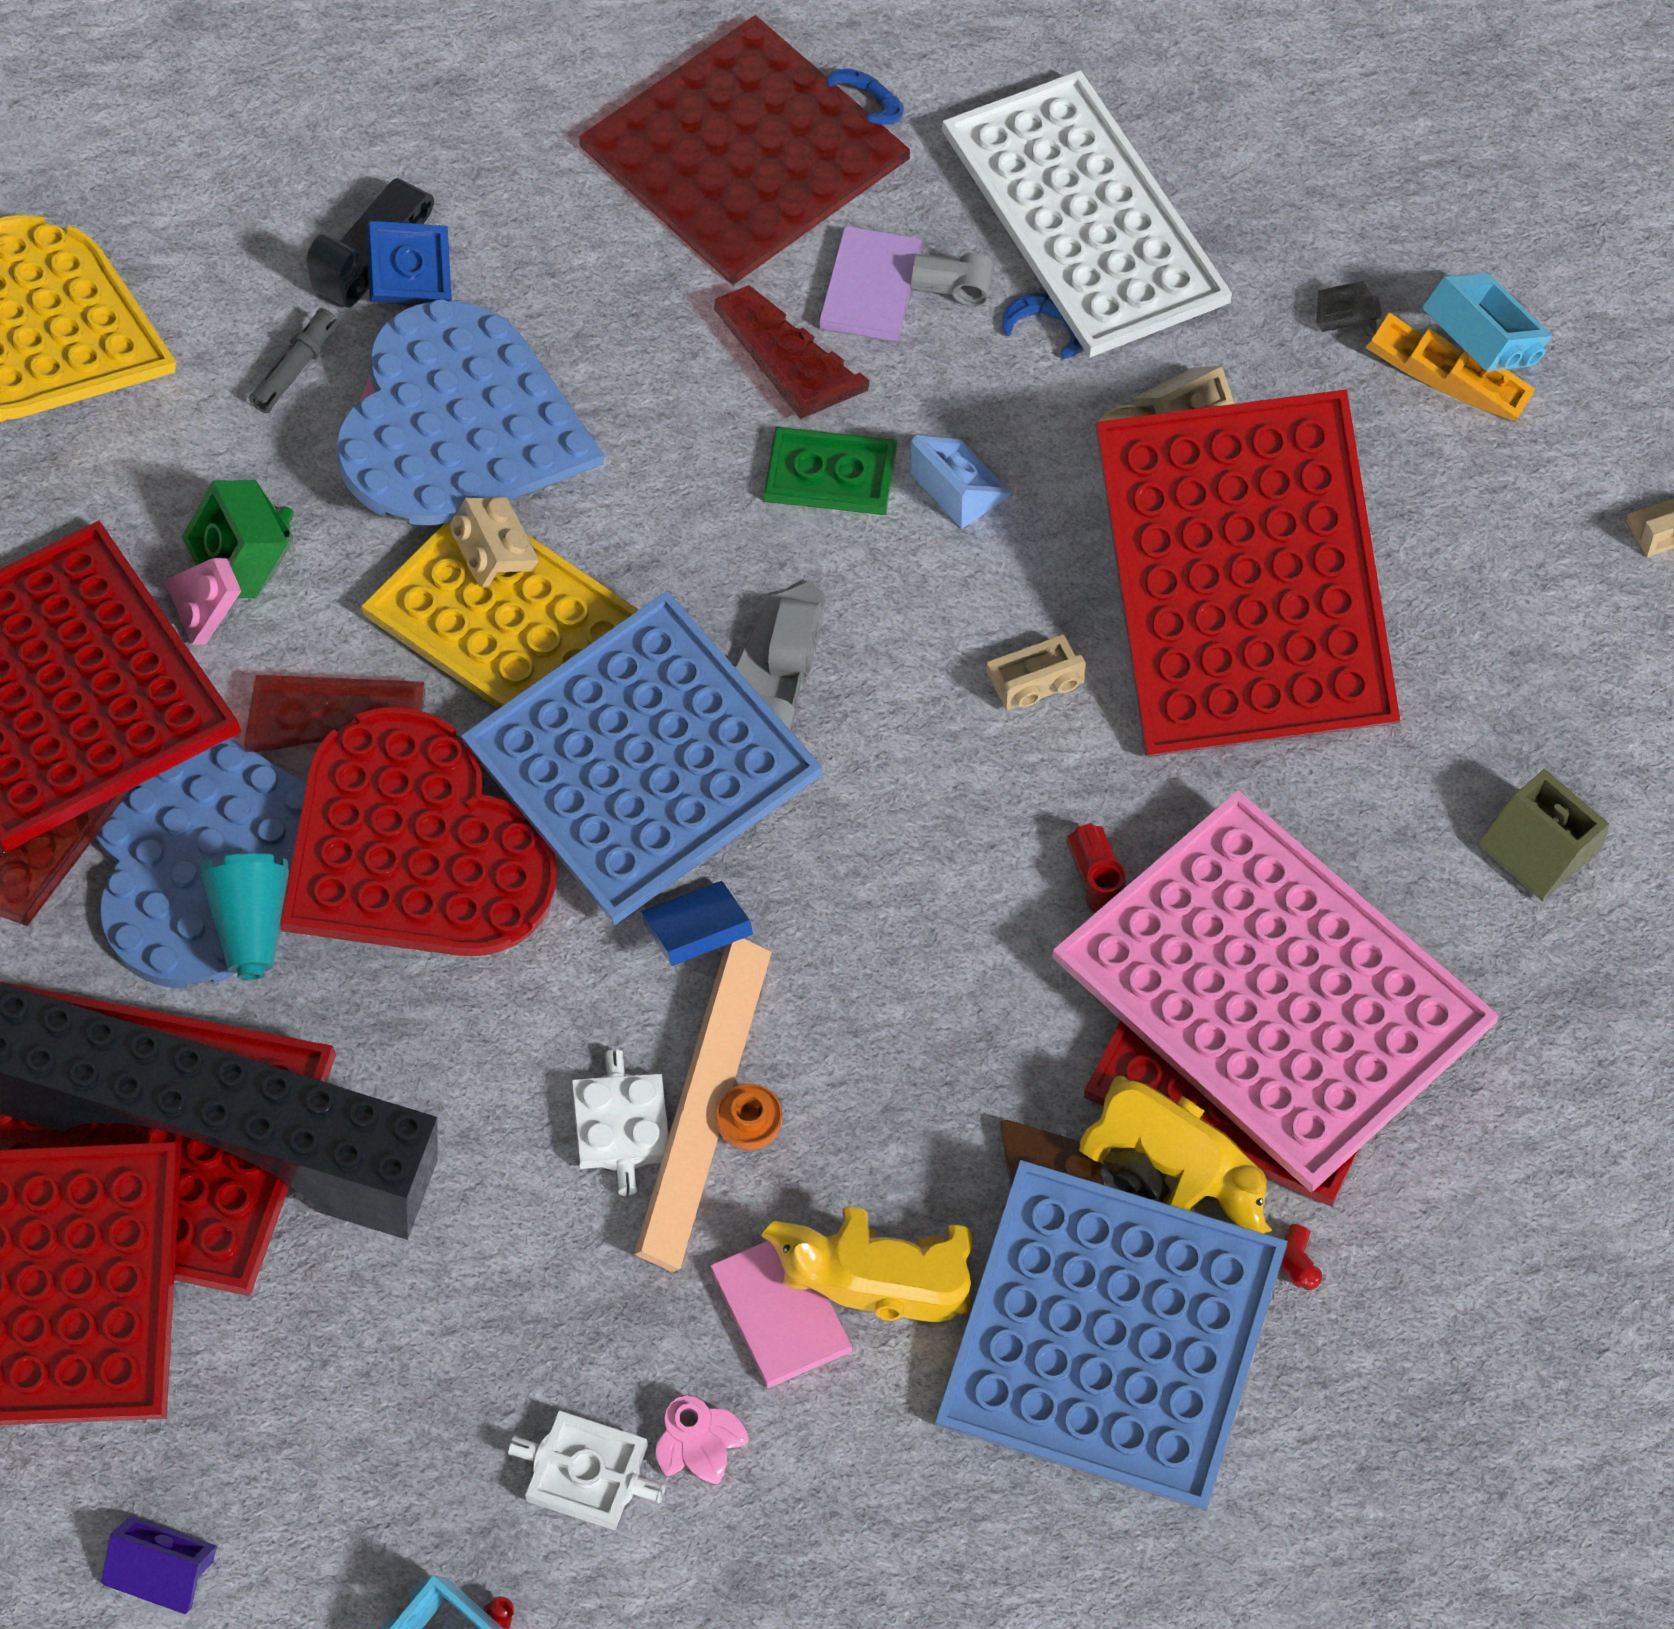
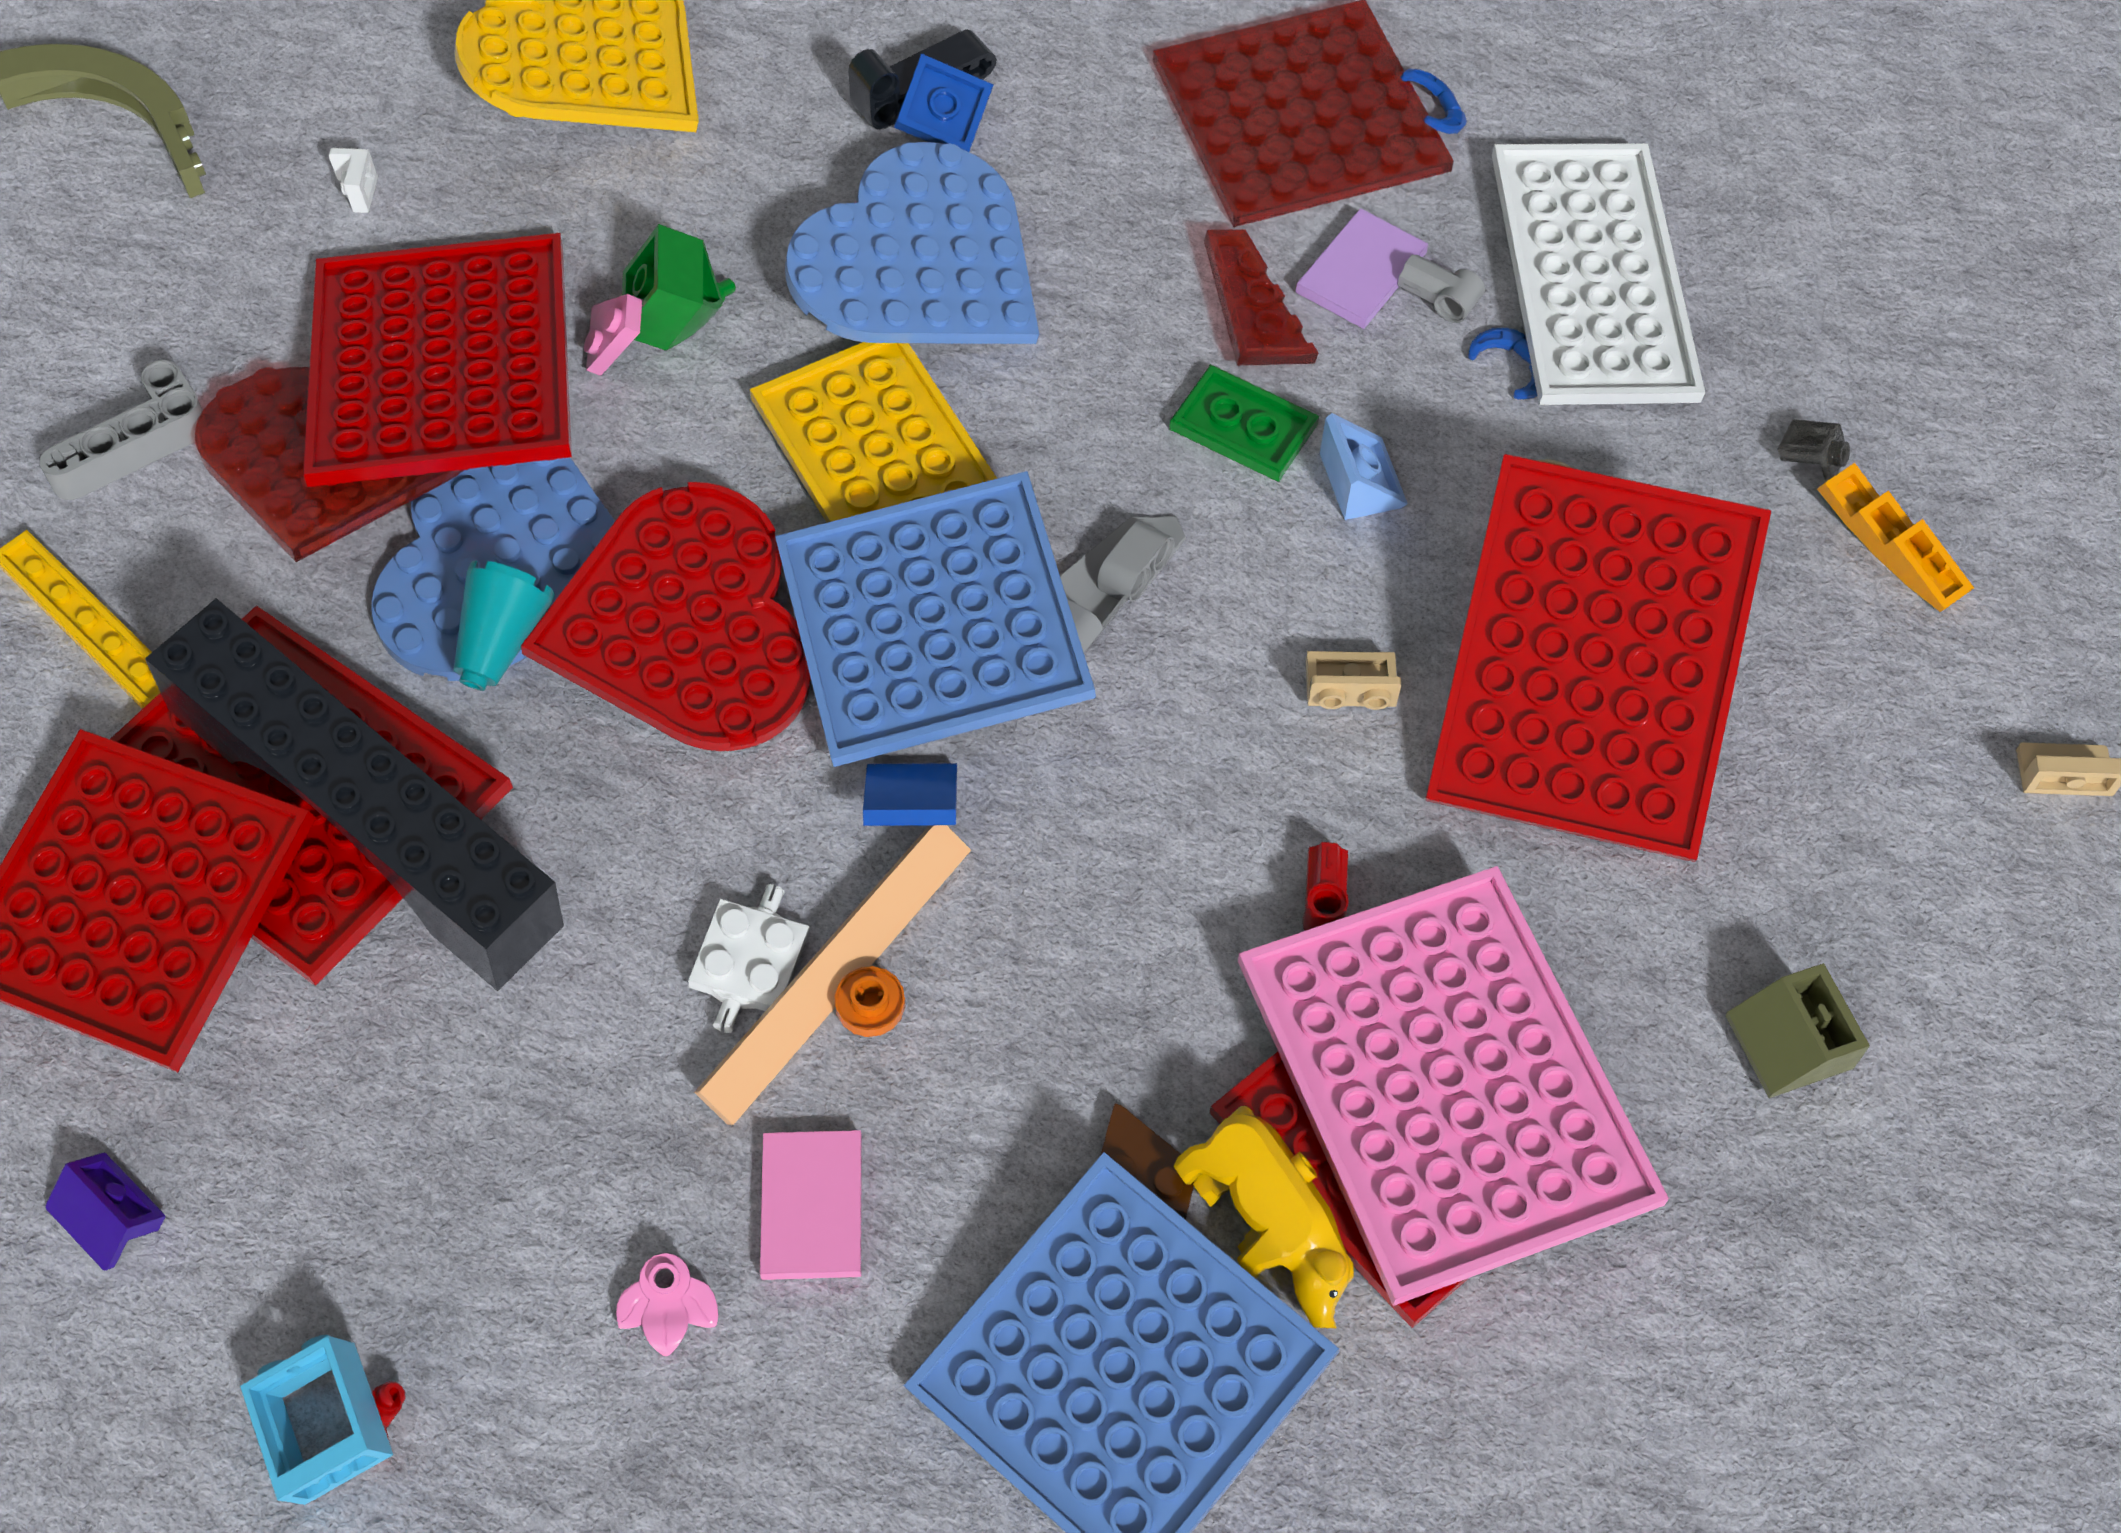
camera: 20 degrees right, 0 degrees up
(303, 348) = (815, 149): dark grey pin -> none
(306, 709) = (644, 458): clear red wing -> none
(492, 538) = (895, 369): tan bracket -> none
(586, 1470) = (543, 1289): white plate -> none
(878, 1272) = (915, 1208): yellow animal -> none
(1135, 1174) = (1220, 1217): clear smoke bracket -> none
(1189, 390) = (1629, 465): tan panel -> none
(1296, 1263) = (1347, 1369): red arm -> none
(1487, 322) = (1950, 505): medium azure window -> none

